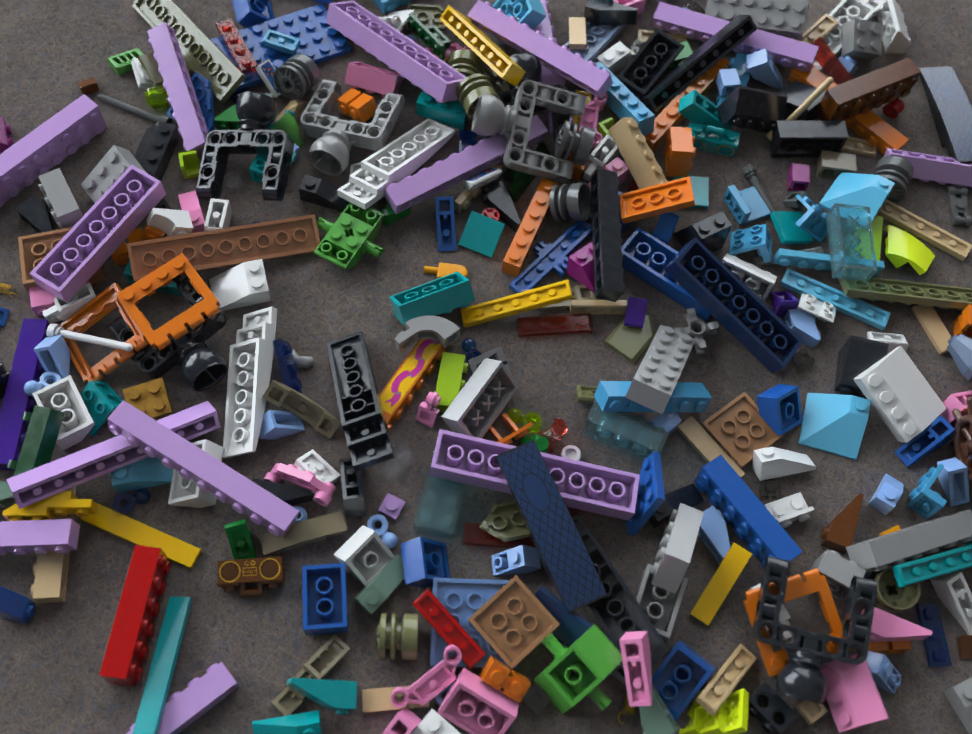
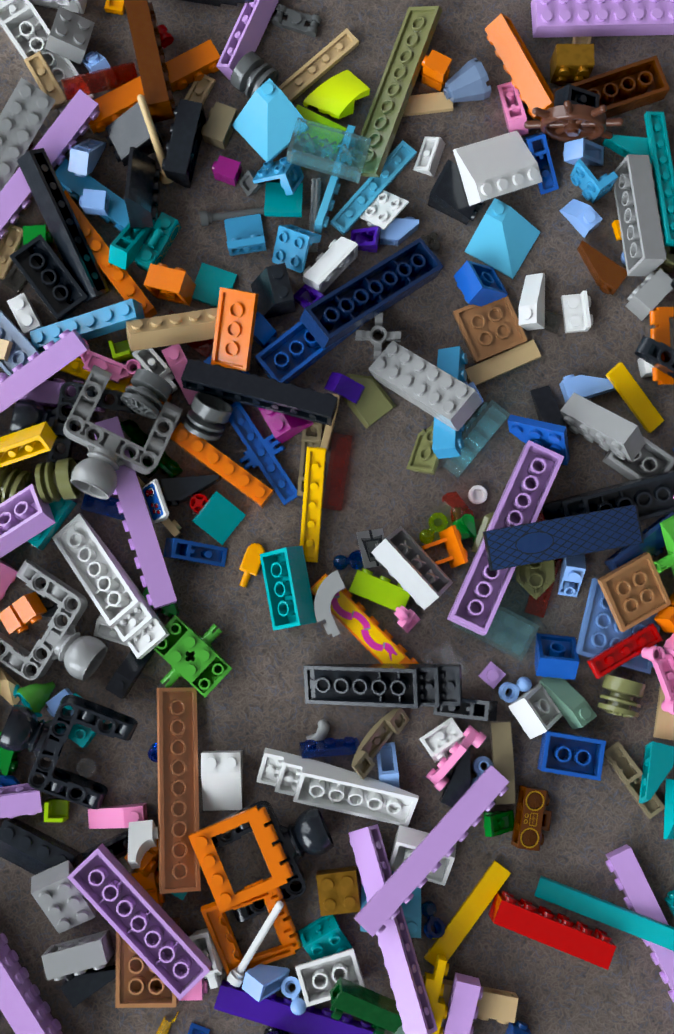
camera: 70 degrees left, 20 degrees up
(218, 215) = (137, 791): white hinge -> none
(745, 512) = (579, 353): blue brick -> none

